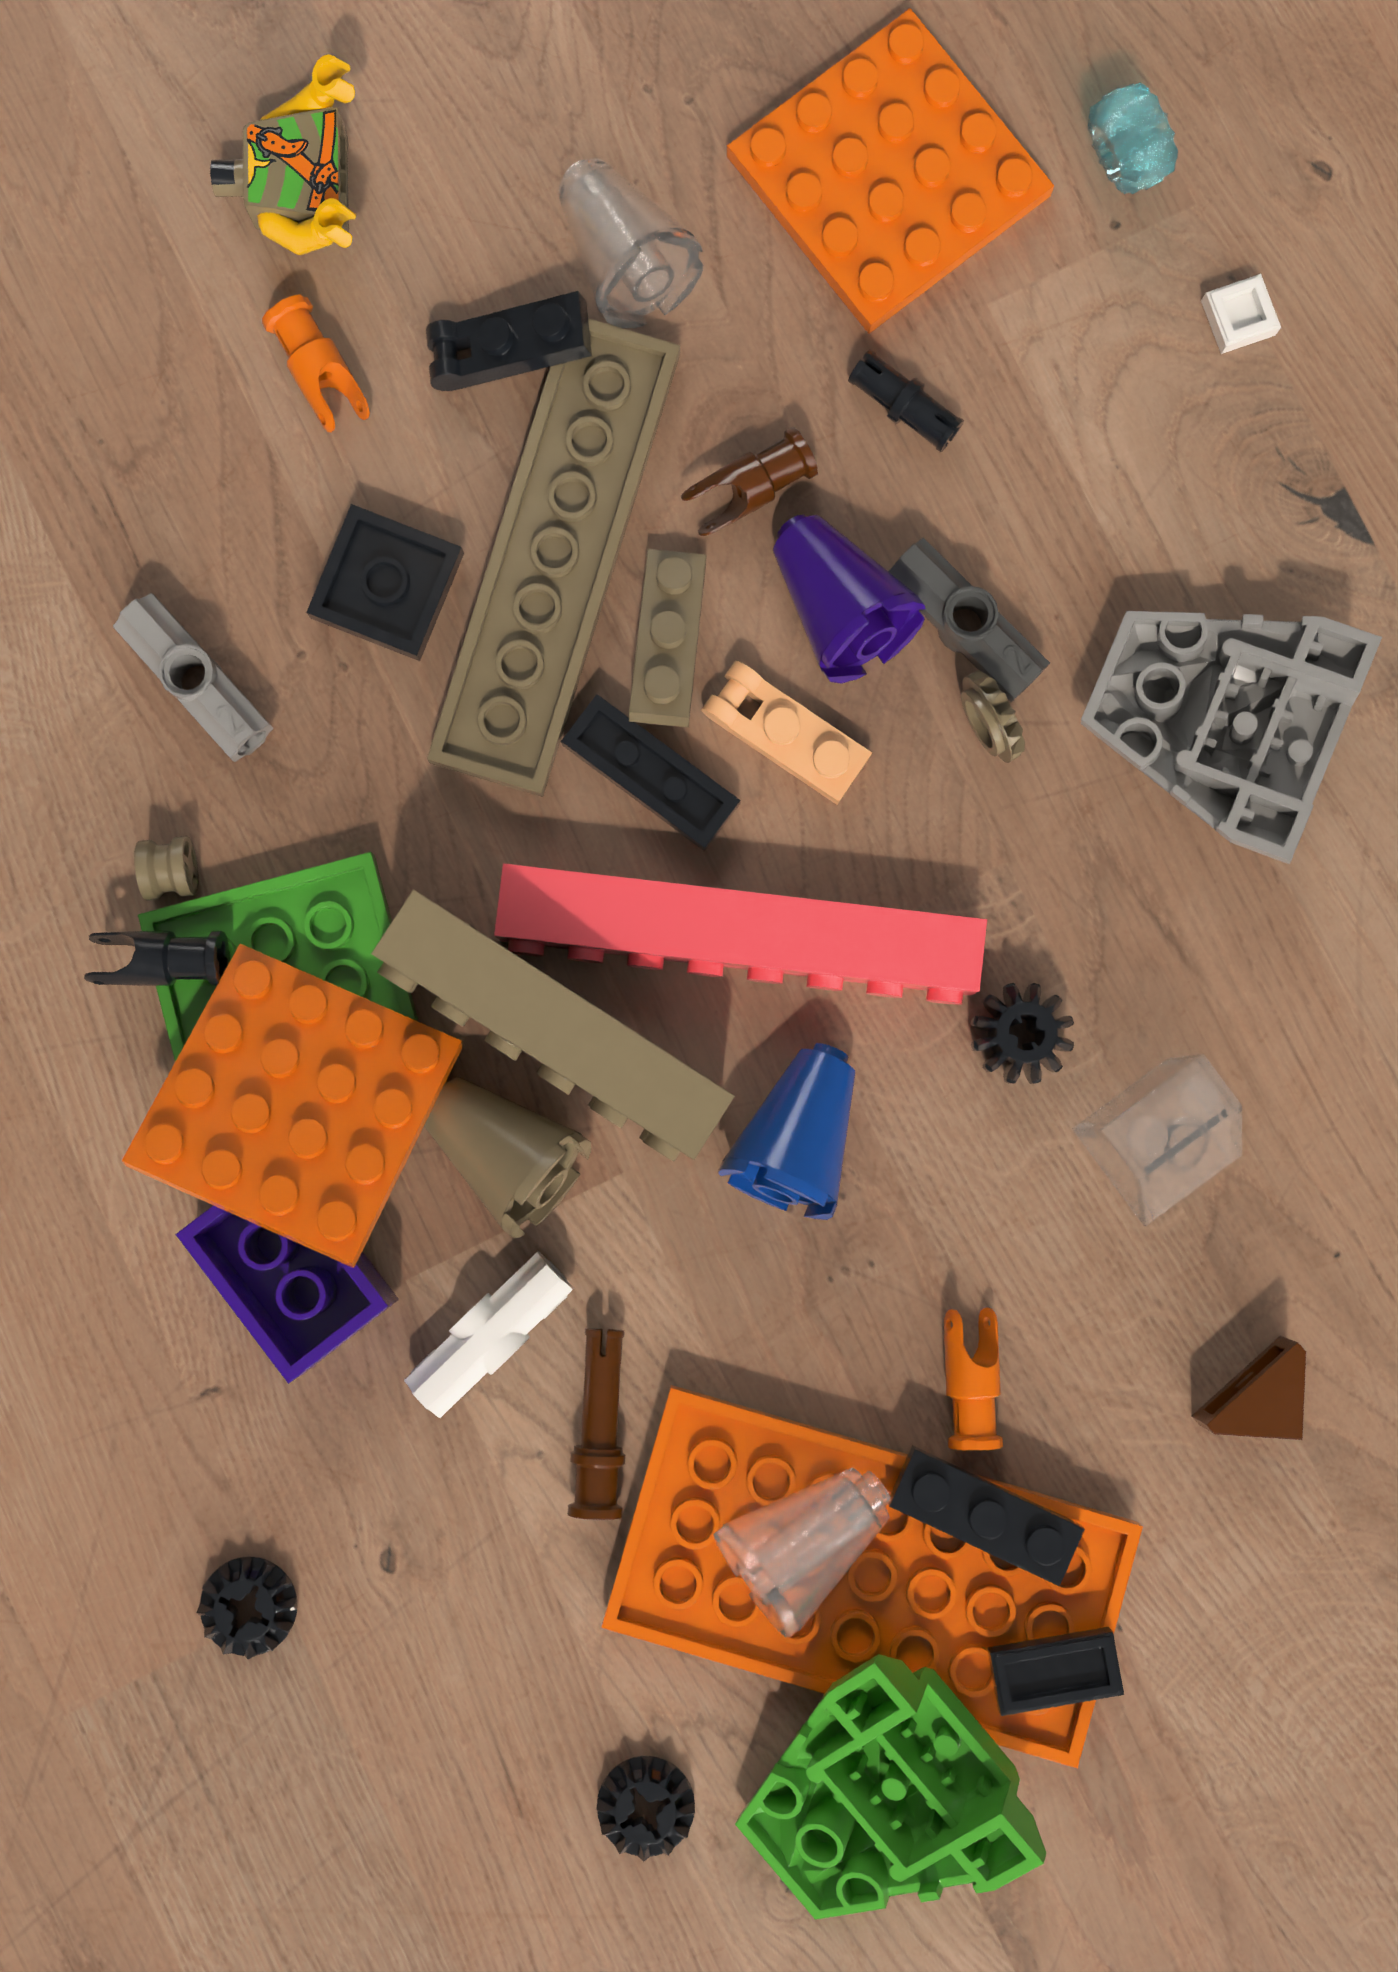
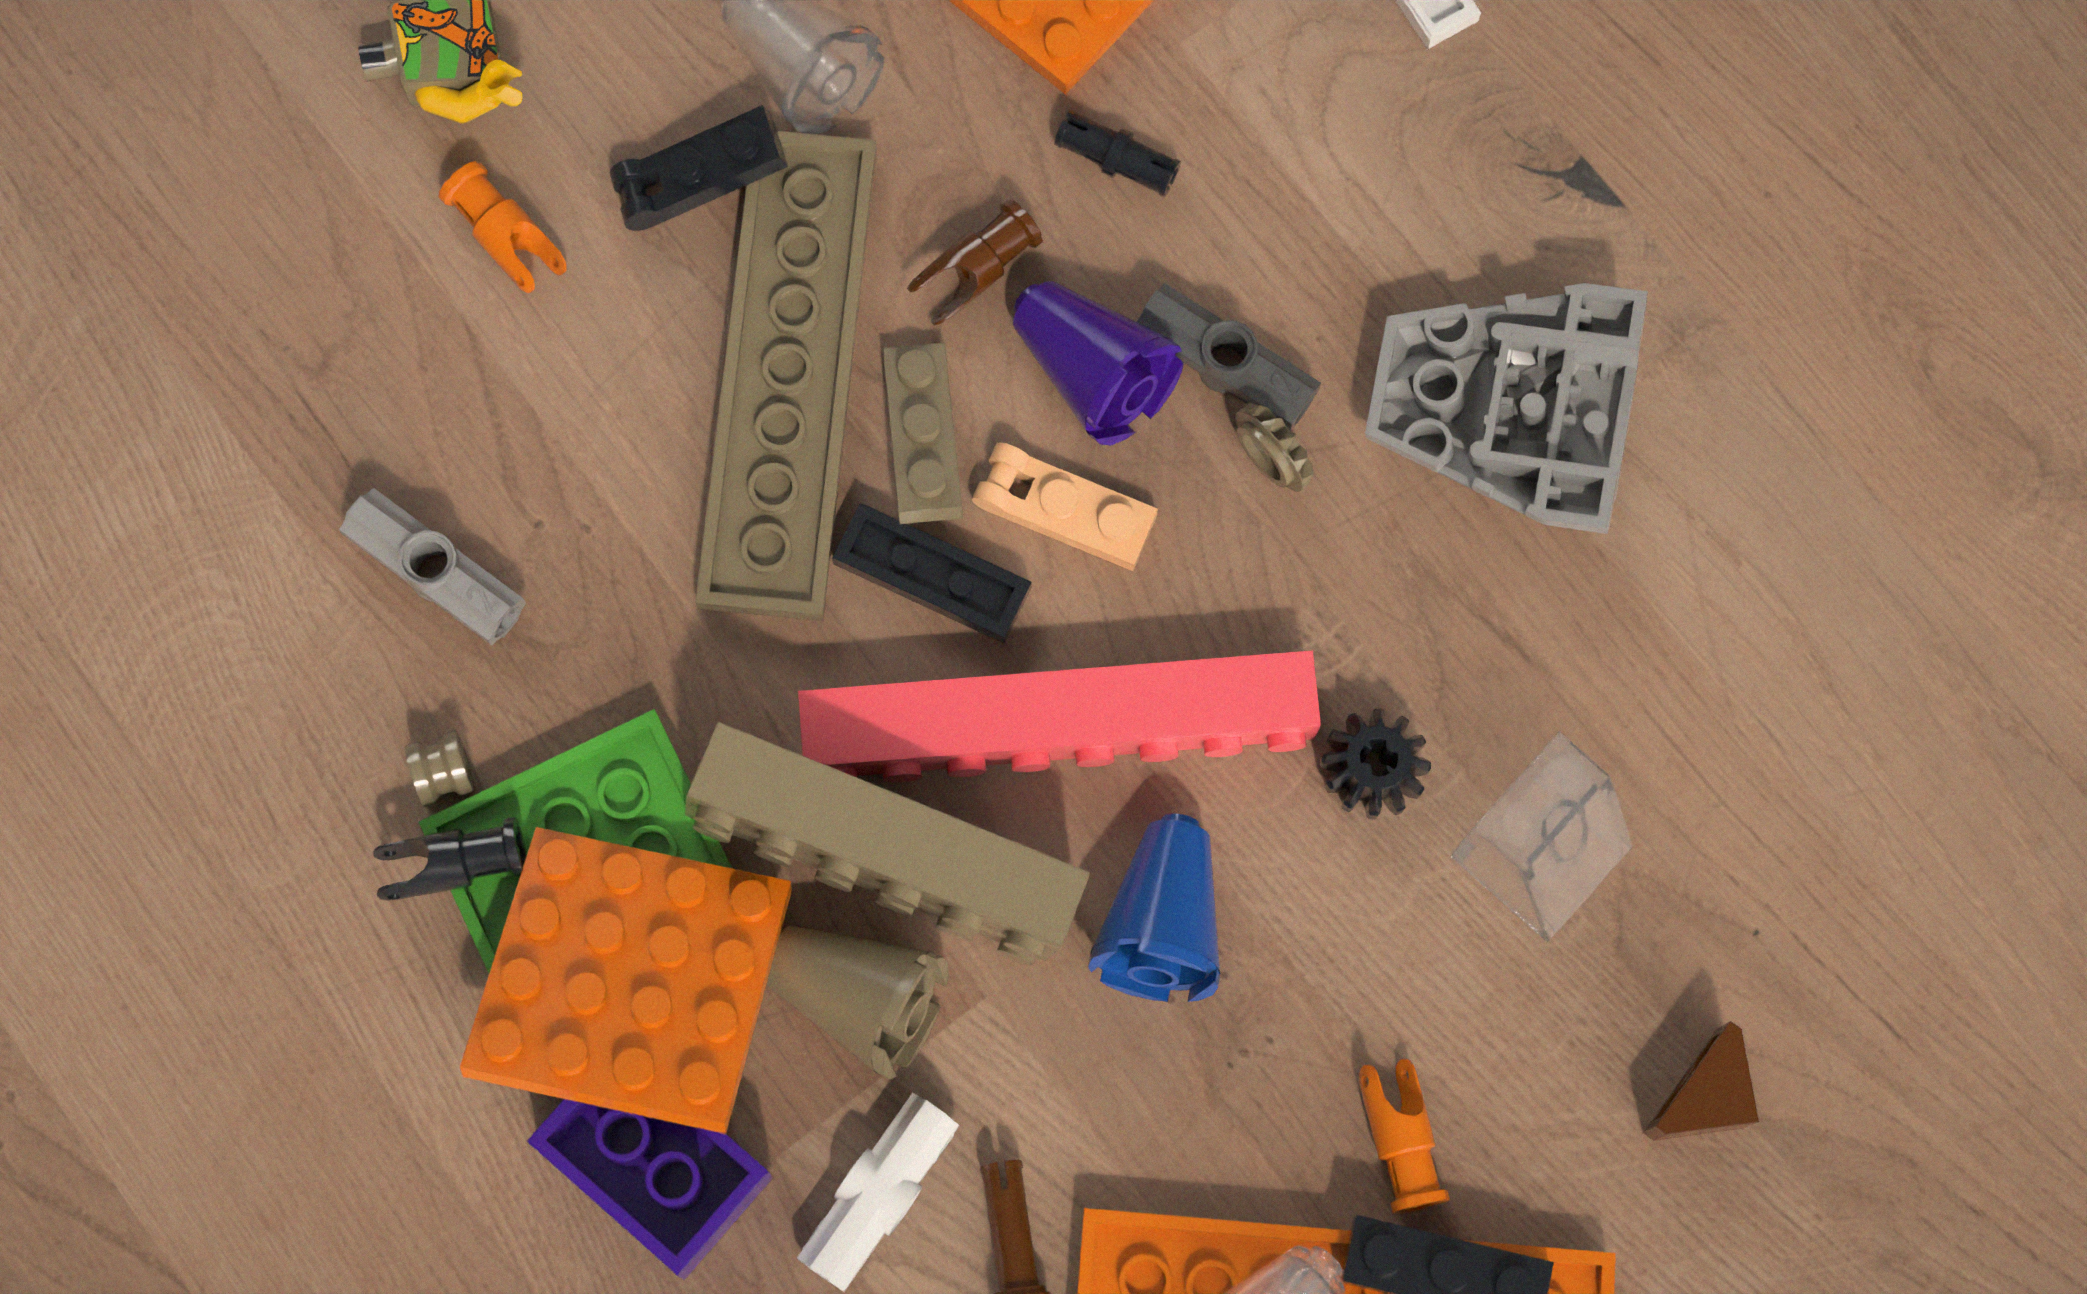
camera: 15 degrees left, 10 degrees down
(385, 582) = (616, 433): black plate -> none

